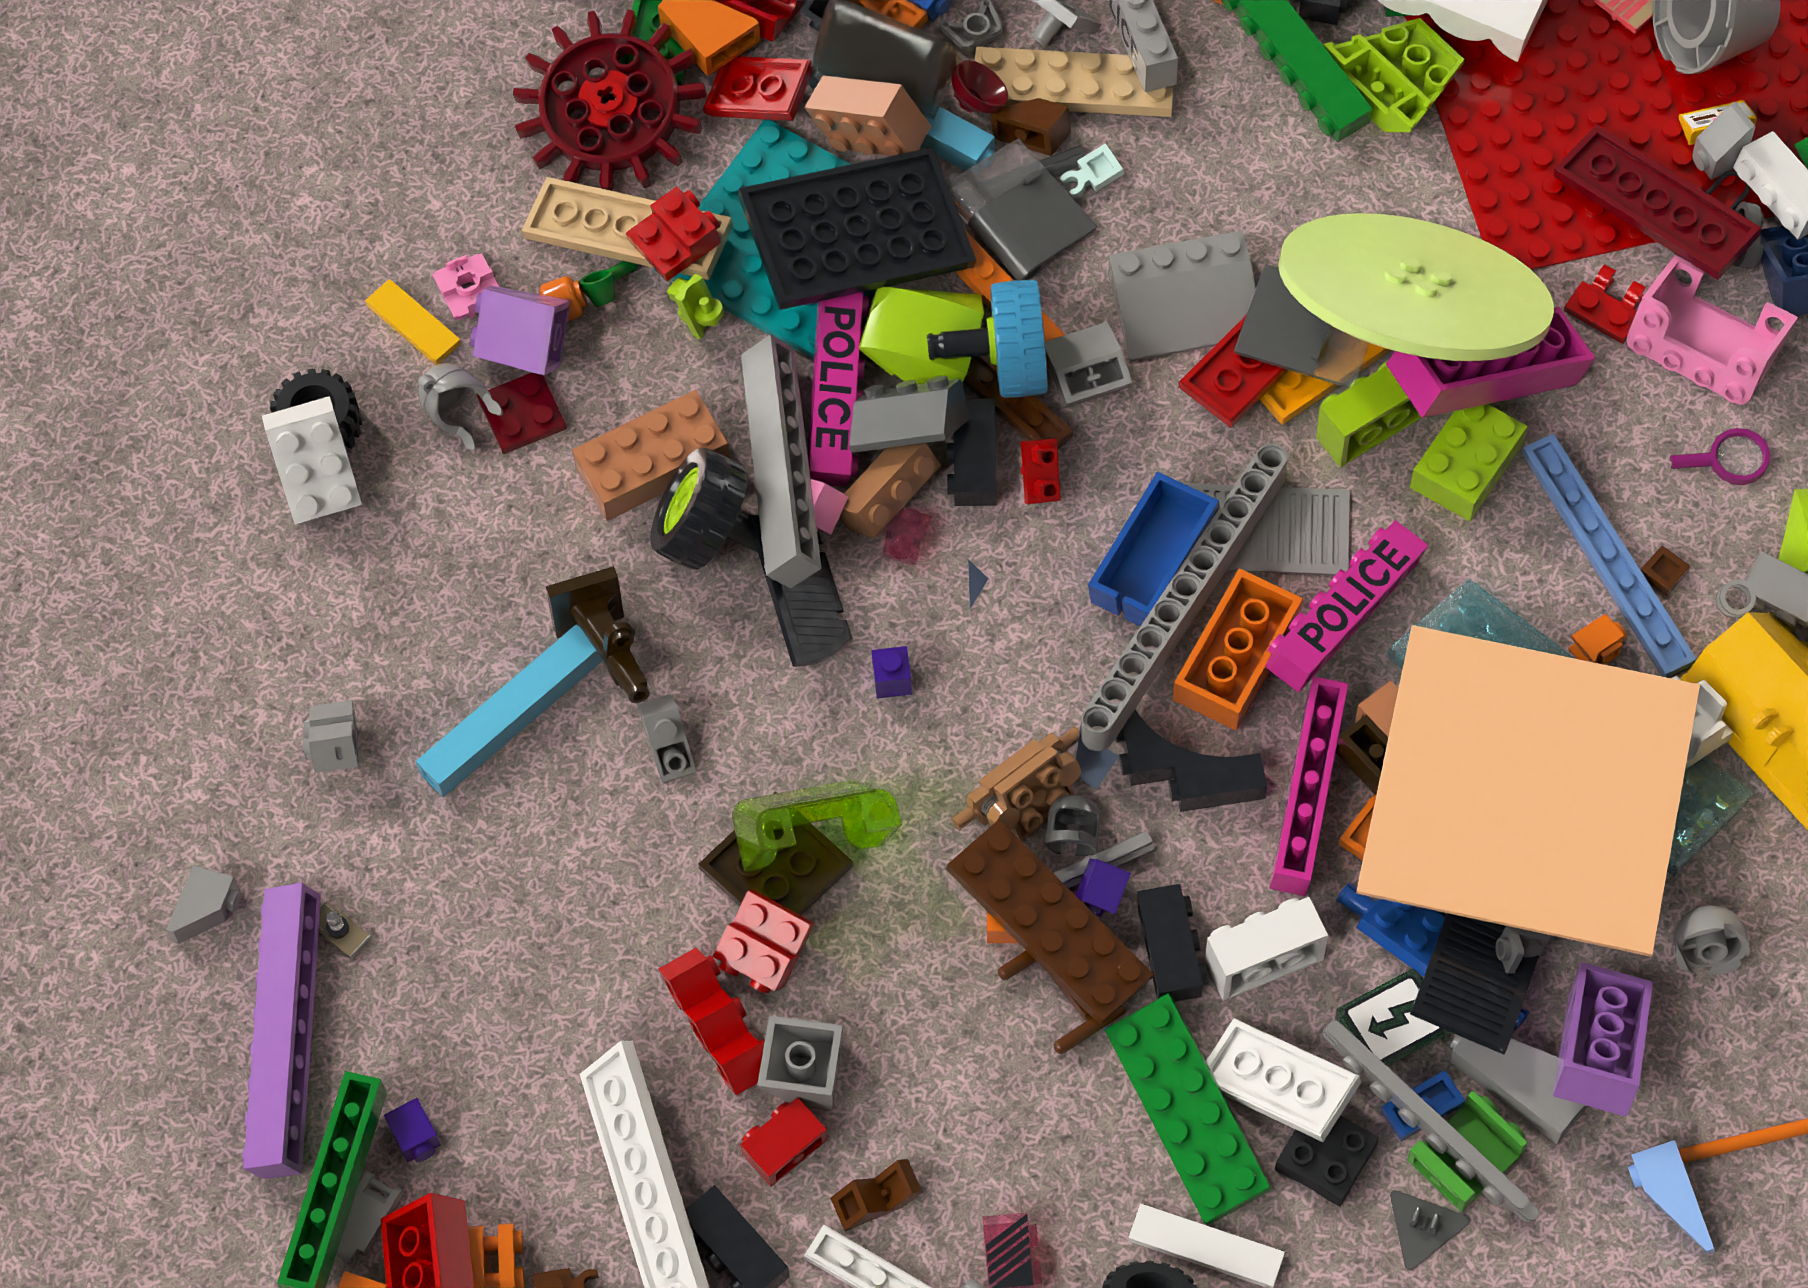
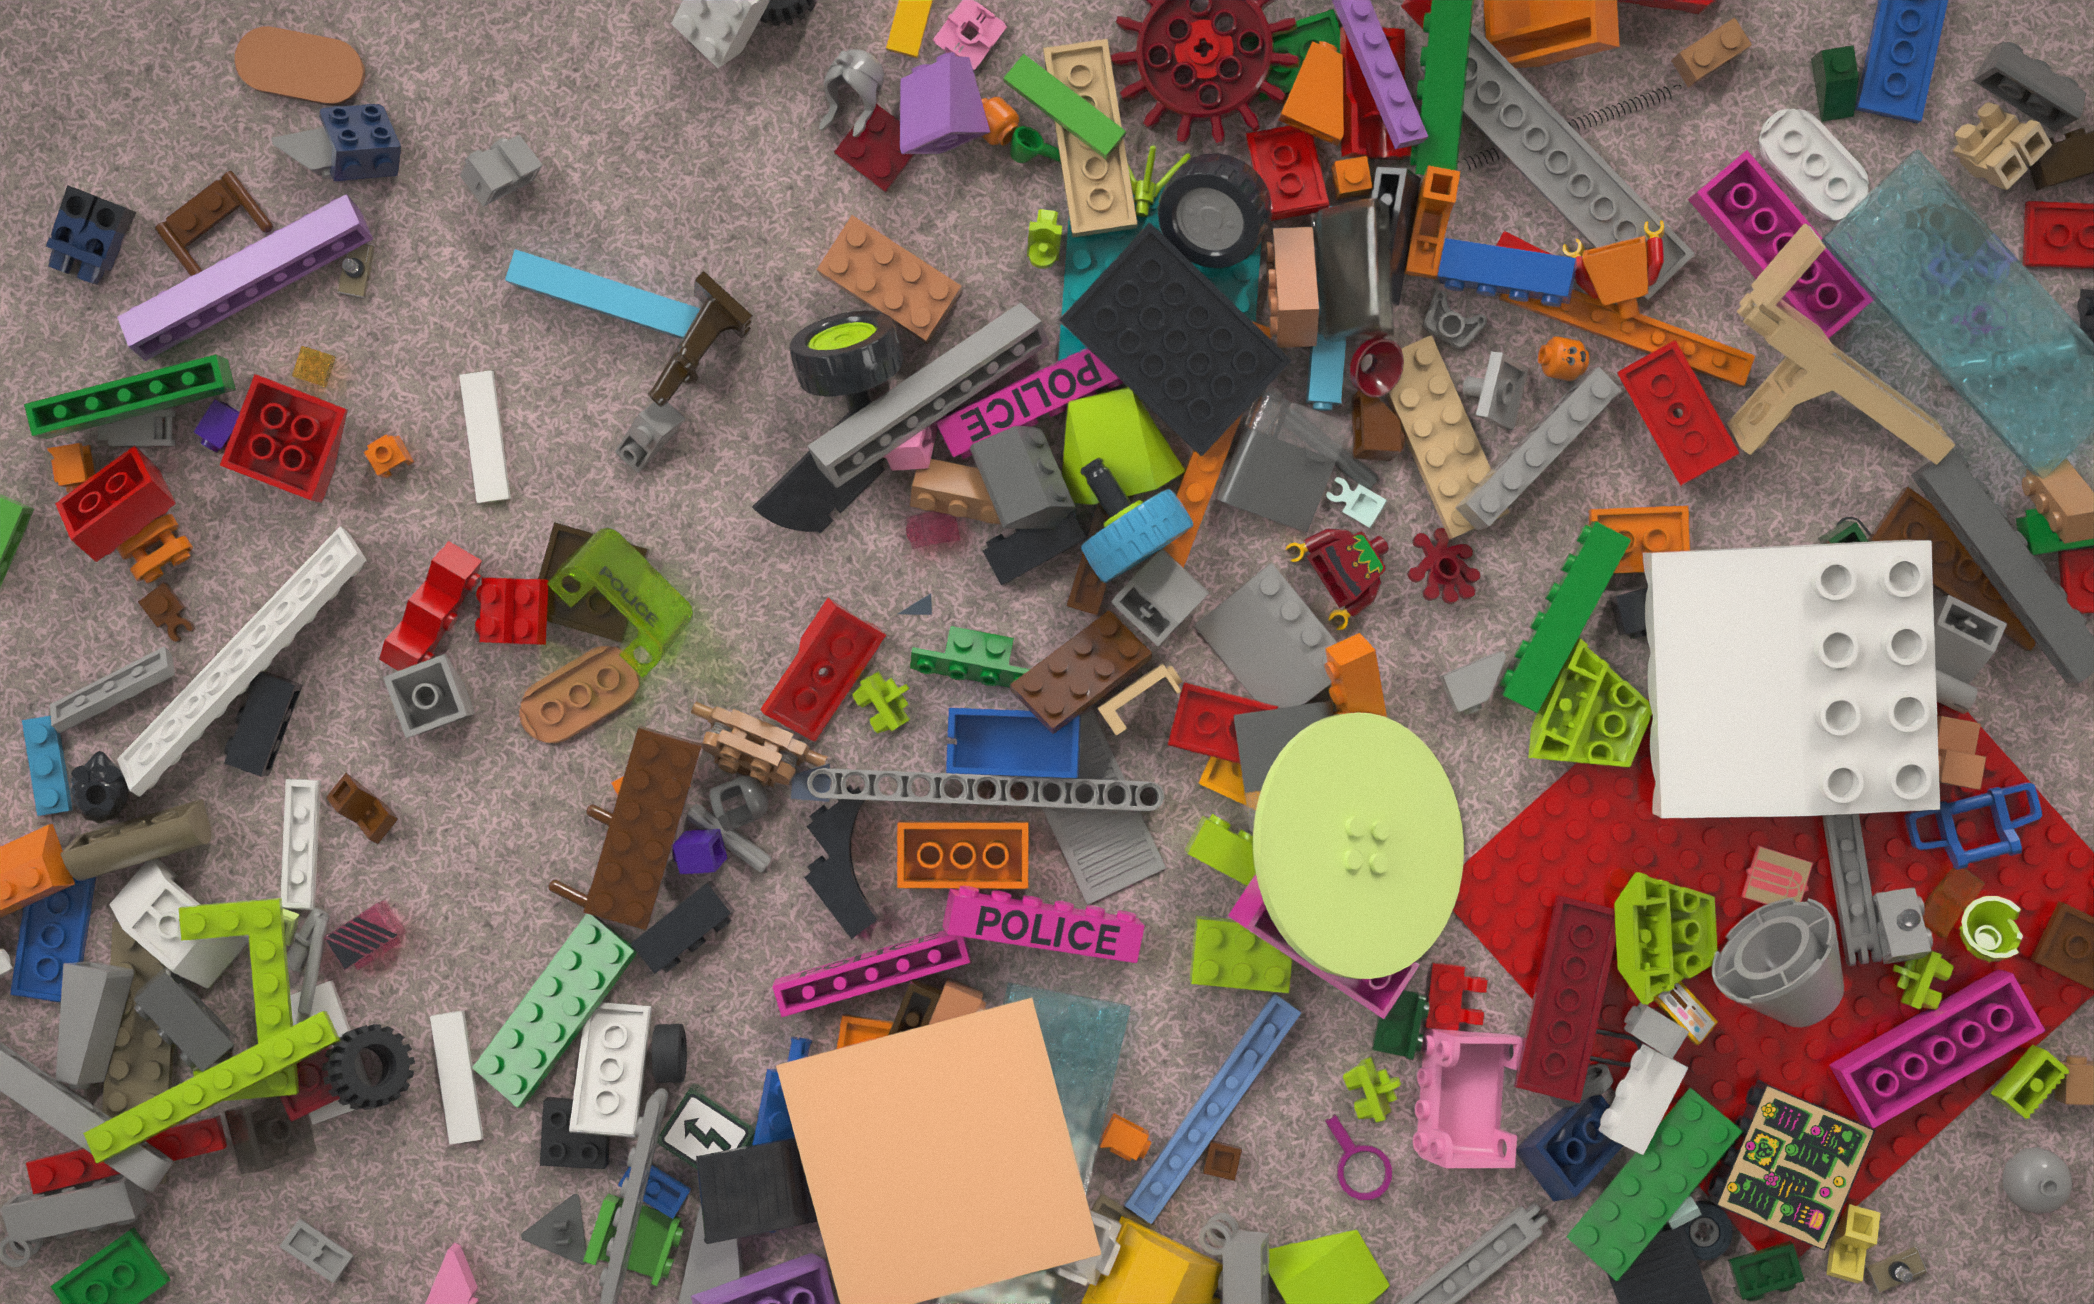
camera: 60 degrees right, 25 degrees up
(111, 882) = (299, 65): none -> nougat tile
(144, 1175) = (87, 231): none -> dark blue hips
(193, 1044) = (205, 212): none -> reddish brown plate
(233, 845) = (361, 142): none -> dark blue bracket
(408, 1015) = (313, 366): none -> clear yellow plate
(465, 1067) = (286, 439): none -> red slope
(538, 984) = (386, 454): none -> orange window
(576, 892) = (485, 437): none -> white tile
(584, 231) = (1064, 106): none -> bright green tile
(675, 233) = (1093, 186): red plate -> none
(706, 200) = (1145, 190): none -> lime plant
(759, 136) = (1215, 210): none -> black wheel
(783, 1141) = (363, 714): red brick -> none
(796, 38) = (1351, 177): none -> orange brick
(881, 932) = (578, 695): none -> nougat tile
(891, 672) = (798, 585): dark purple brick -> none
(966, 661) = (834, 642): none -> red piece
(1040, 471) = (1041, 611): red hips -> none
(1055, 555) = (970, 657): none -> green bracket
(1065, 654) = (887, 700): none -> lime hips
(1119, 459) = (1081, 671): none -> reddish brown plate
(1147, 202) = (1347, 567): none -> dark red torso
(1174, 451) = (1108, 708): none -> tan panel
(1195, 129) = (1444, 568): none -> dark red animal
(1252, 226) = (1355, 677): none -> orange brick
(1265, 947) = (710, 1006): white brick -> none
(1291, 1013) = (669, 1053): none -> black tyre
(1316, 154) = (1472, 683): none -> light grey slope
(1519, 943) = (801, 1203): dark grey bracket -> none
(1617, 359) = (1400, 1029): none -> dark green bracket
(1633, 100) = (1662, 935): none -> lime wedge
(1644, 409) = (1377, 1087): none -> lime hips

